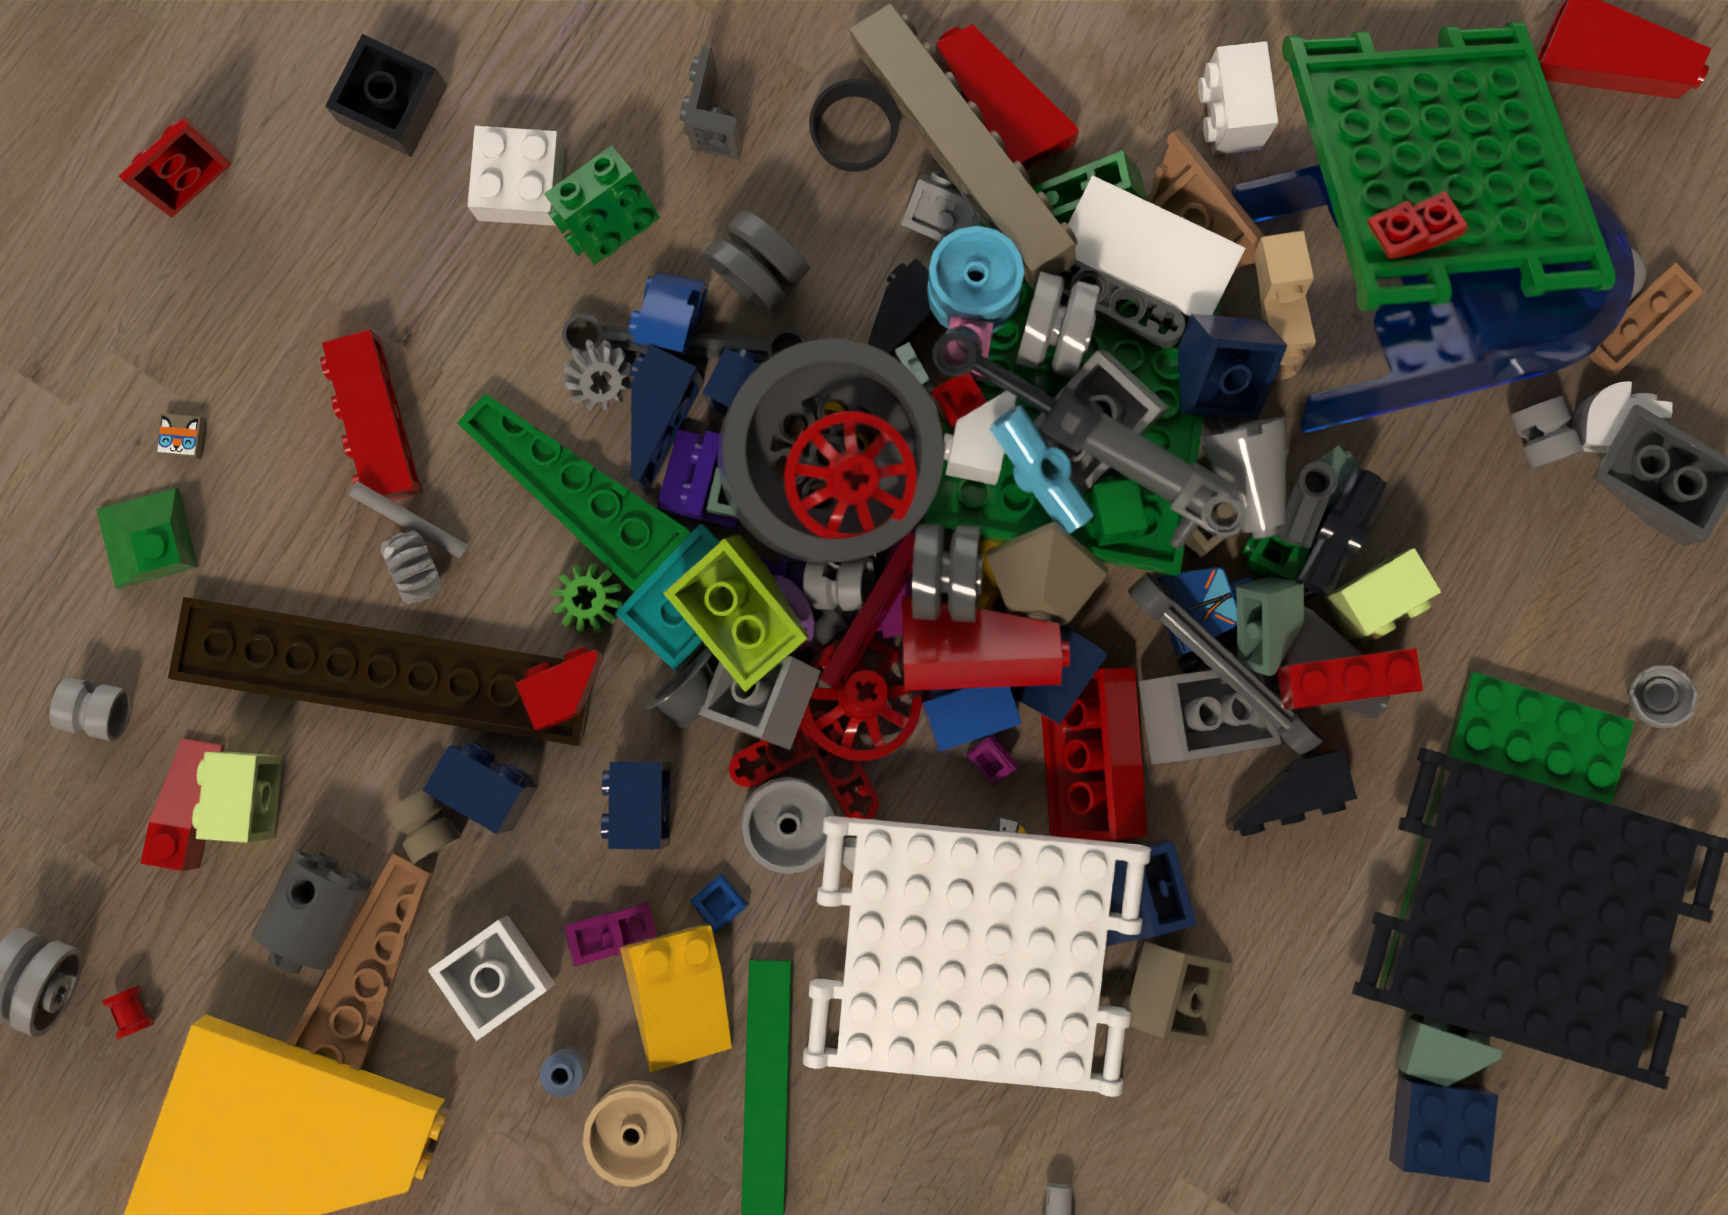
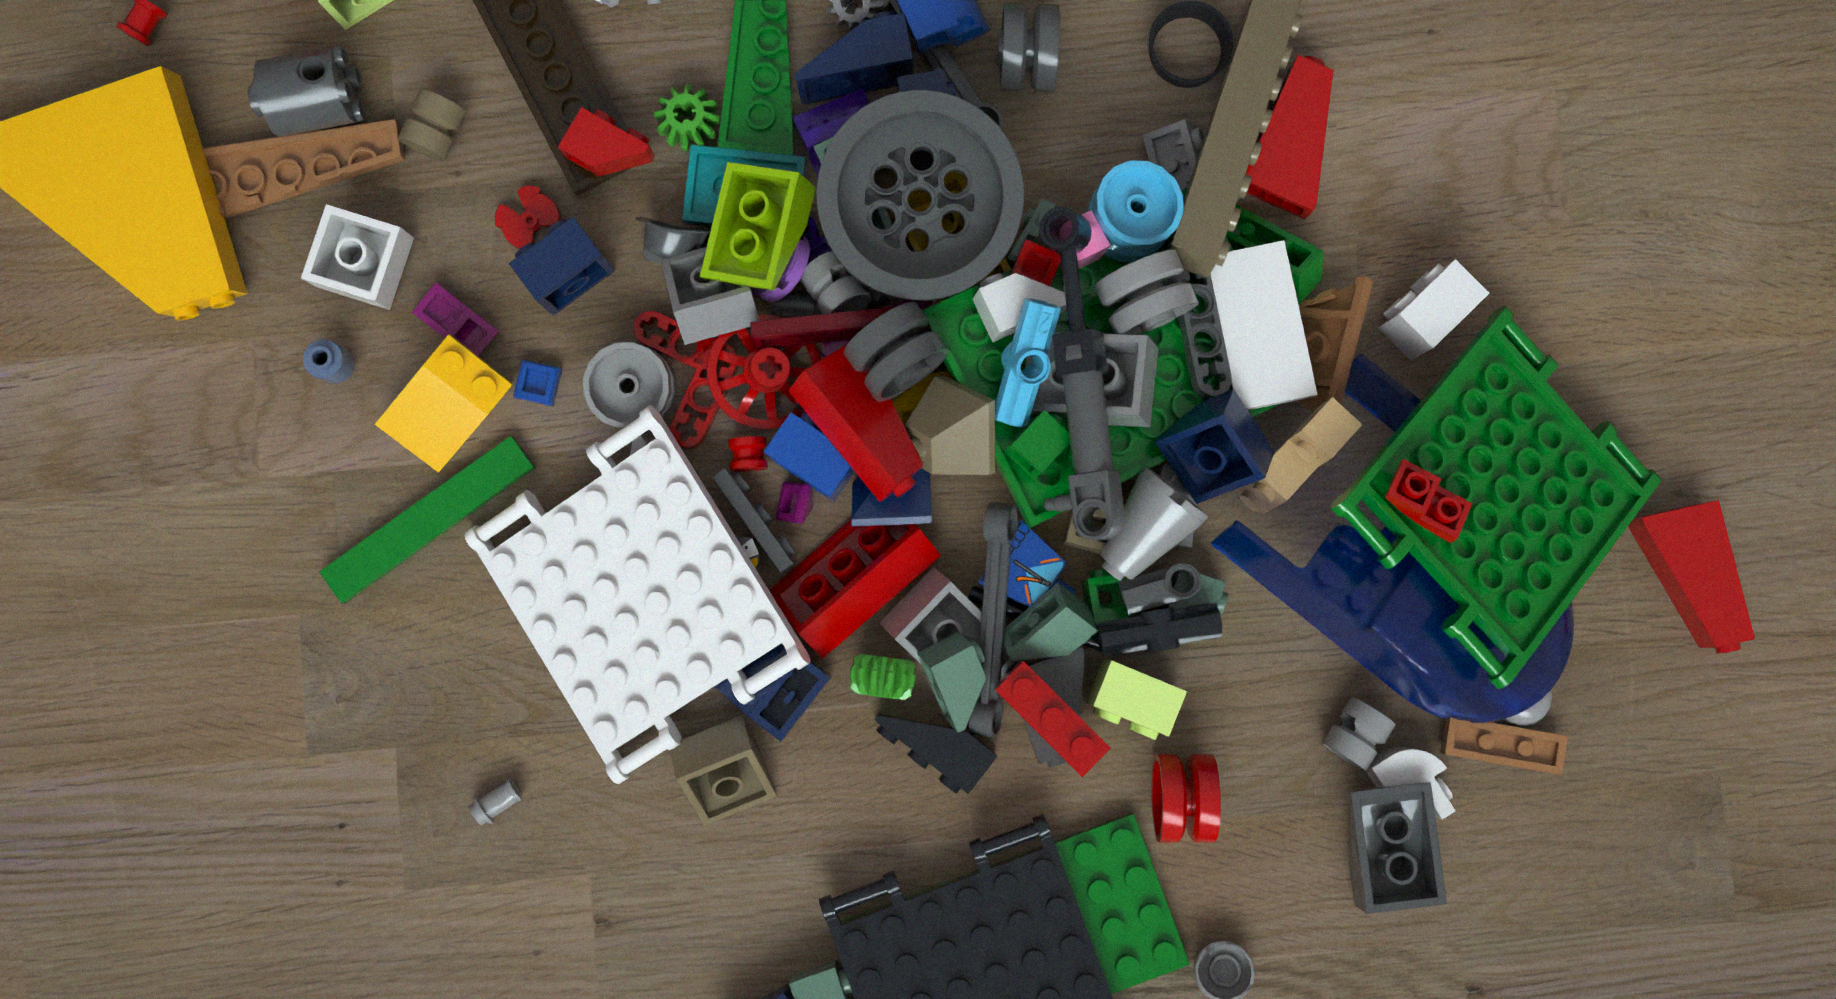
camera: 50 degrees right, 0 degrees up
(480, 787) = (488, 143): dark blue brick -> none
(572, 816) = (539, 213): none -> red piece
(623, 1157) = (298, 439): tan wheel -> none
(850, 475) = (910, 220): red wheel -> none
(902, 309) = (1069, 183): black slope -> none
(921, 767) = (747, 454): none -> red wheel
(984, 802) = (756, 519): none -> dark grey plate
(1202, 795) = (882, 676): none -> bright green gear
(1251, 734) = (954, 677): none -> sand green slope
(1497, 617) = (1185, 798): none -> red wheel

